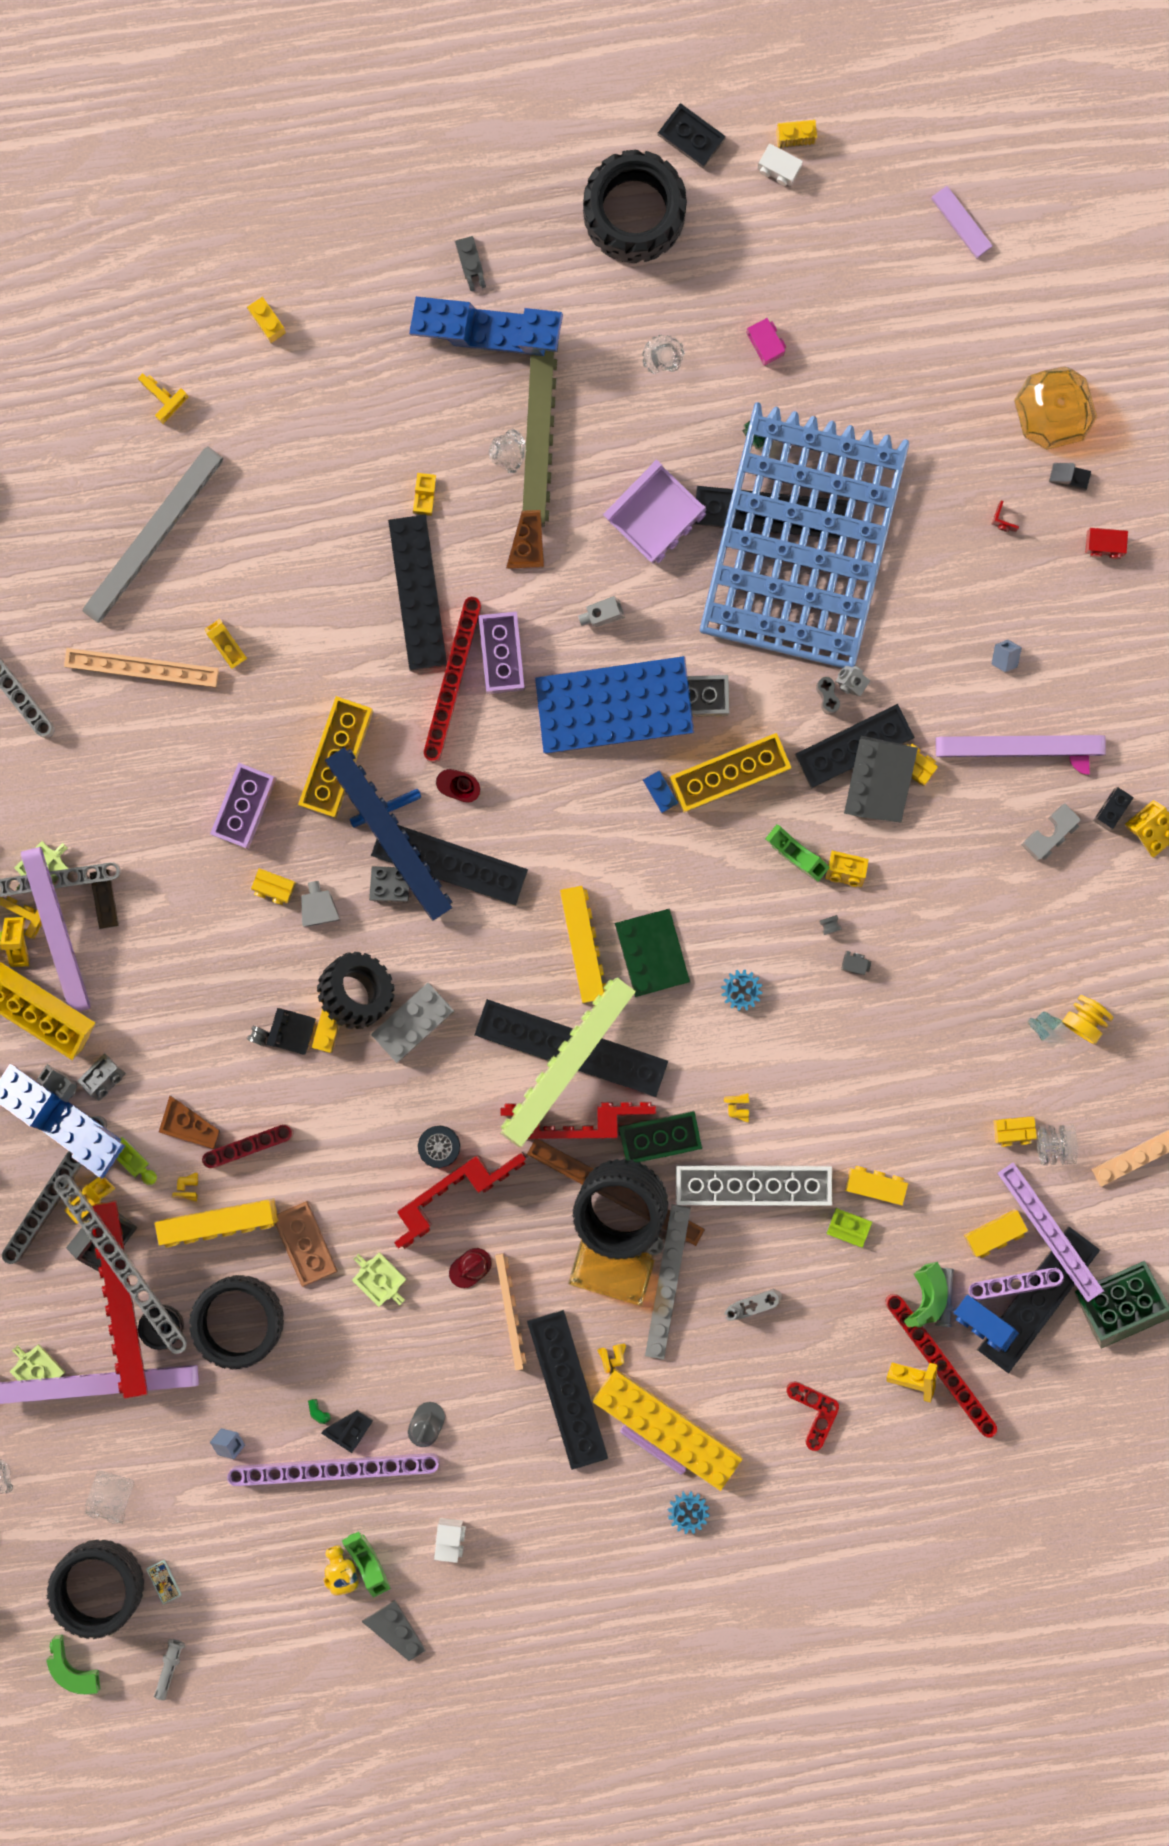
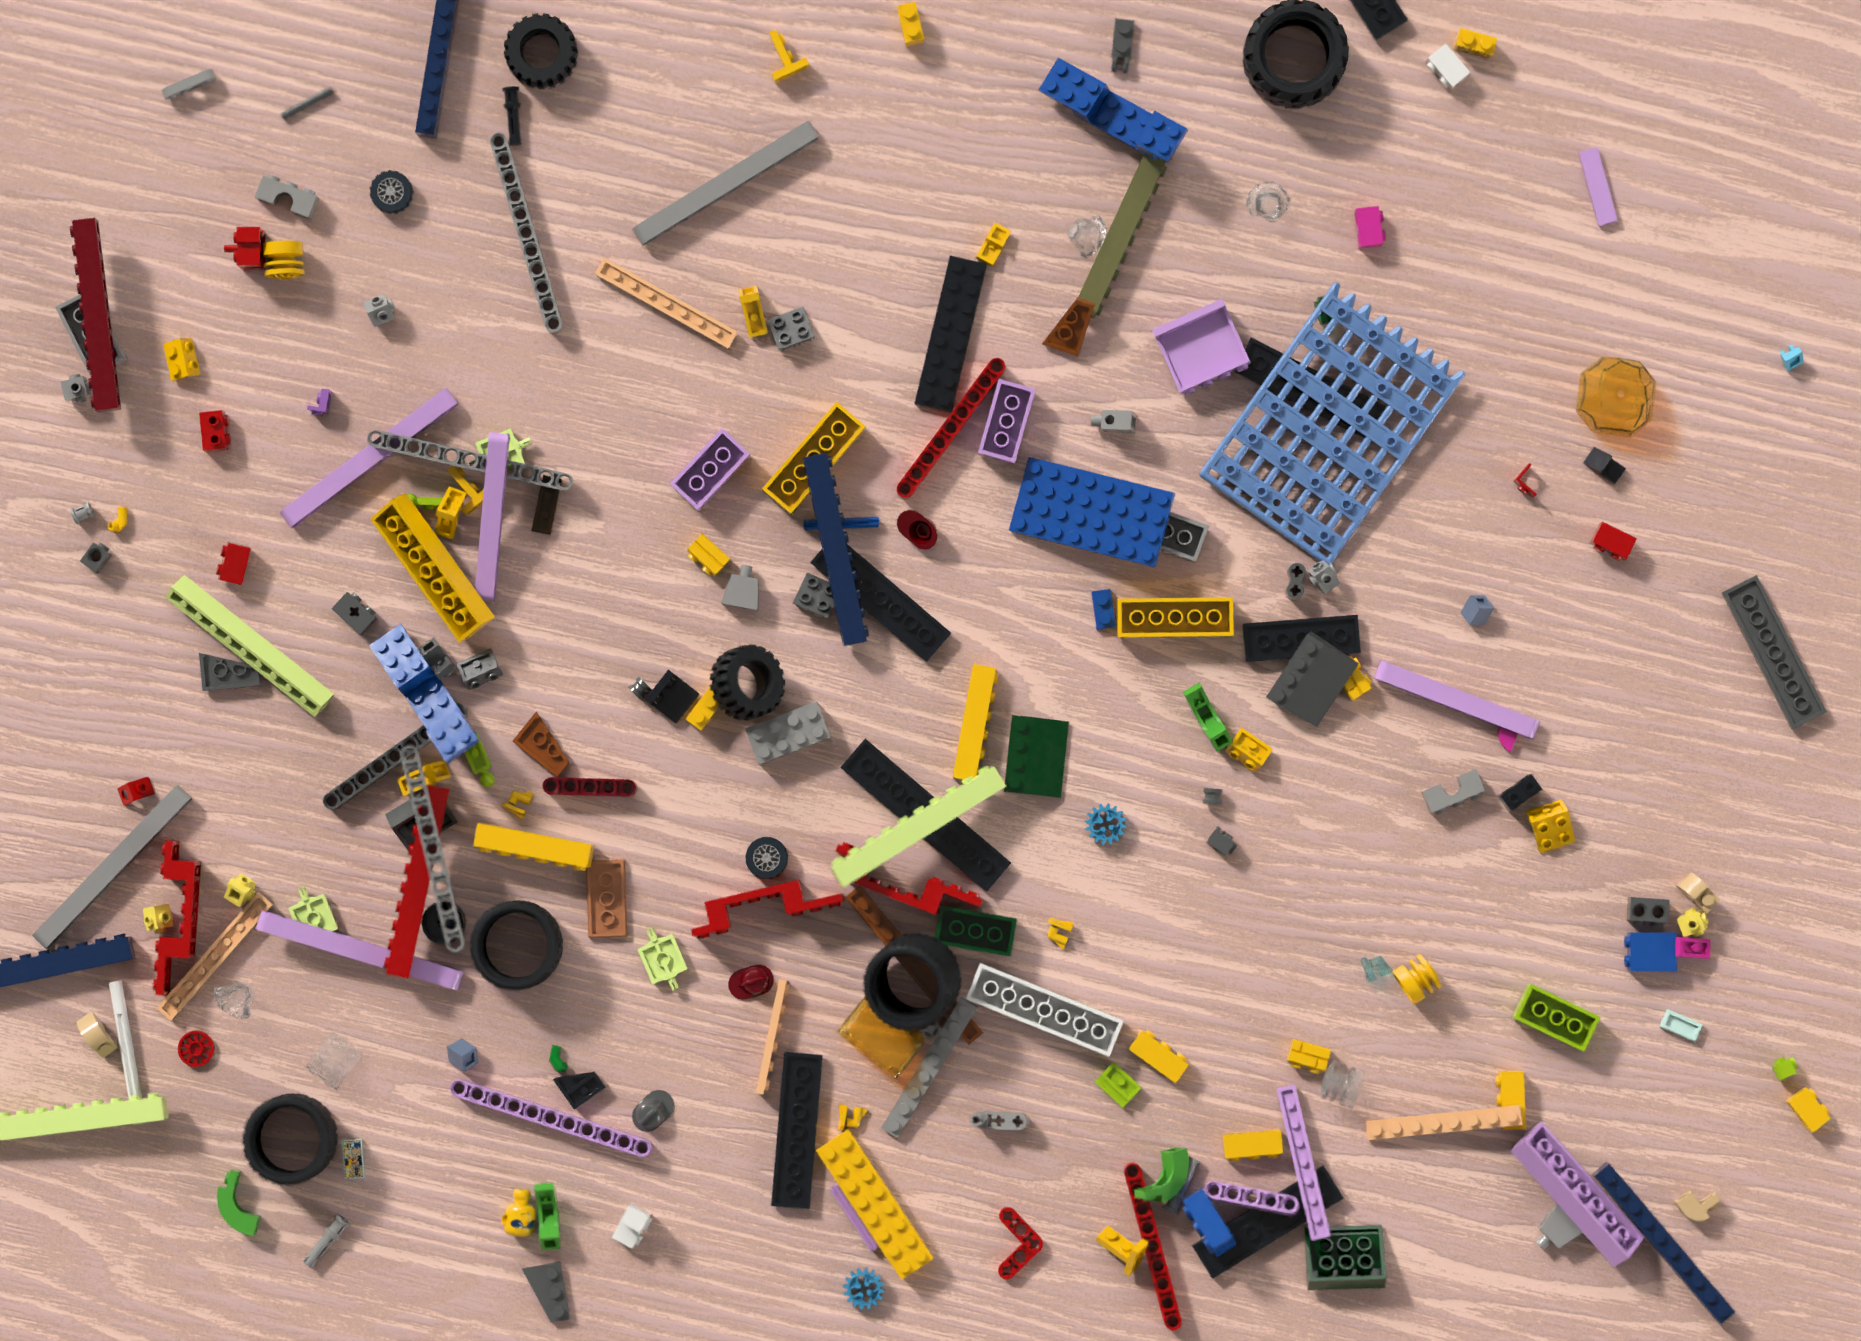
camera: 30 degrees right, 0 degrees up
(267, 646) = (791, 328): none -> dark grey hinge

